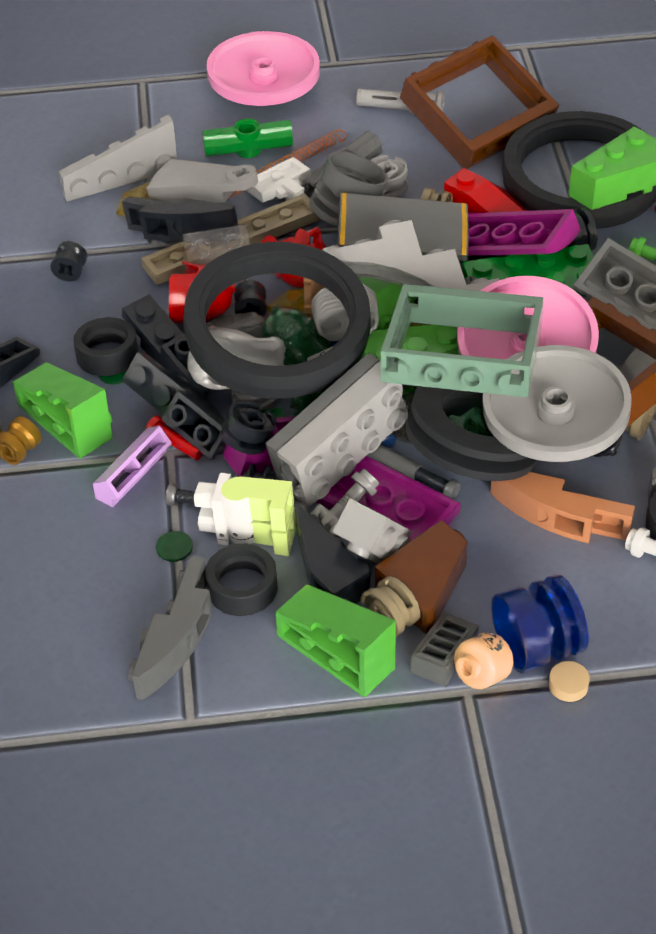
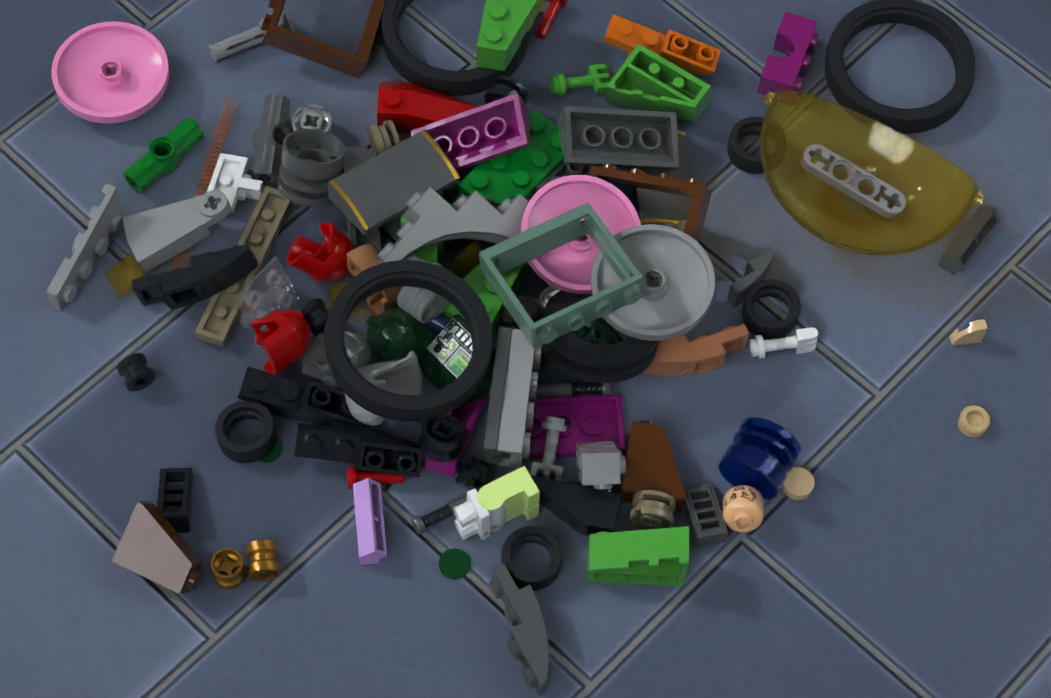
camera: 45 degrees left, 15 degrees up
(66, 407) = (272, 507): bright green wedge -> none

